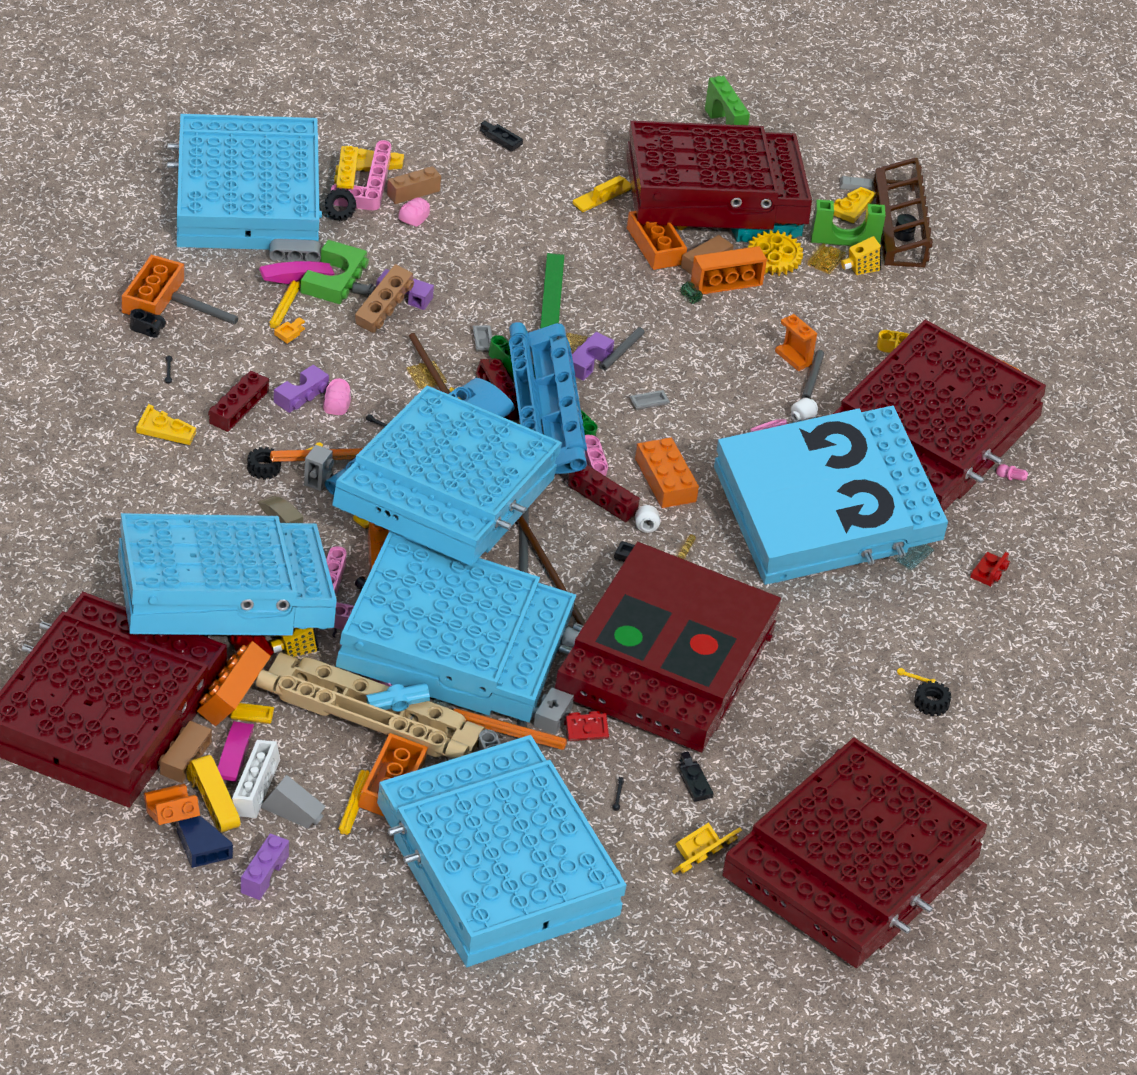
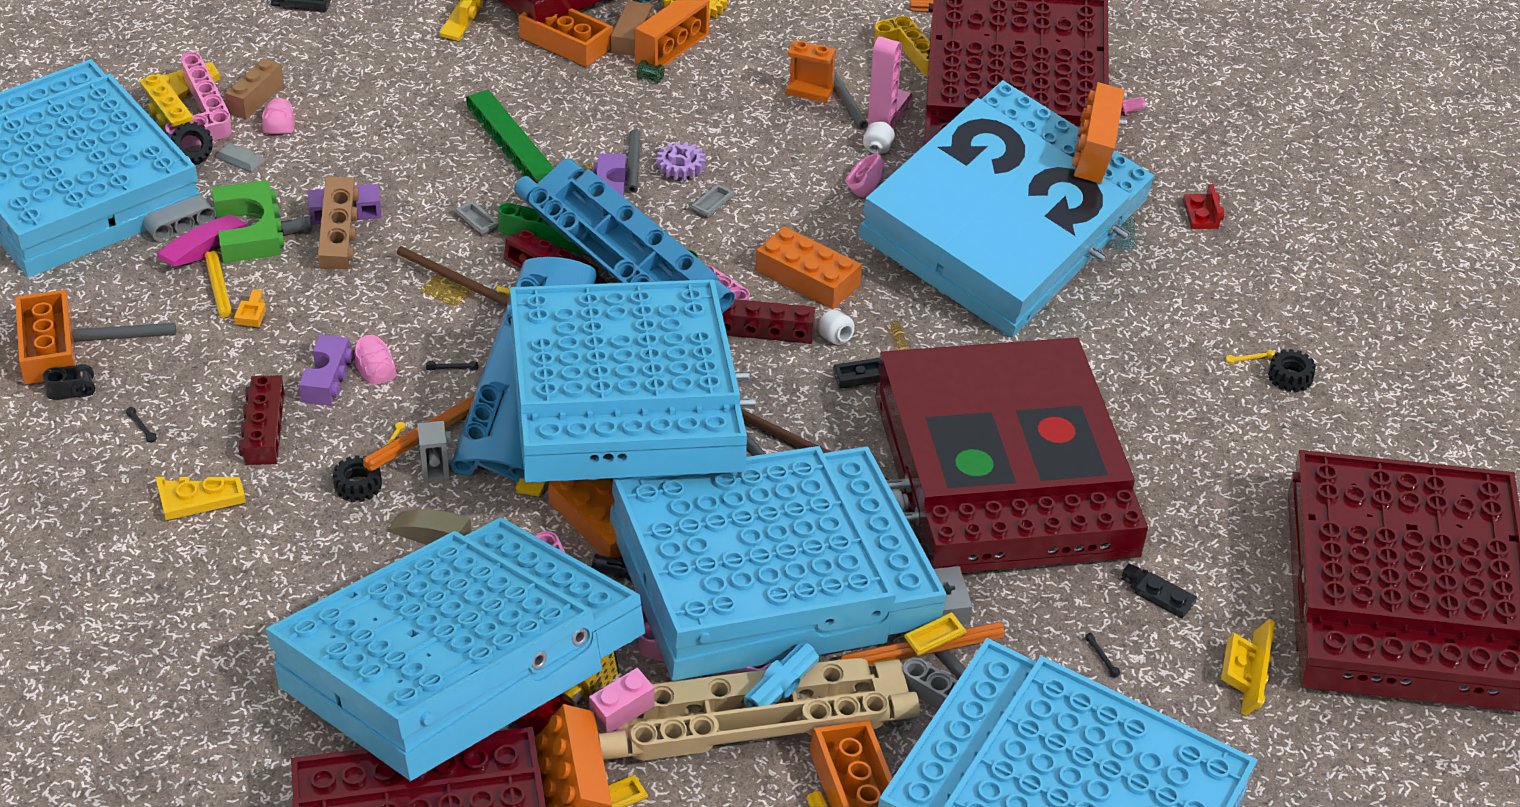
camera: 30 degrees left, 0 degrees up
(293, 659) = (622, 701): none -> bright pink brick
(368, 228) = (240, 157): none -> light grey tile
(517, 724) = (935, 634): none -> yellow tile
(587, 726) = (1000, 595): red bracket -> none
(652, 363) = (681, 160): none -> lavender gear
(822, 386) = (886, 100): none -> bright pink beam
(918, 470) = (1098, 132): none -> orange brick

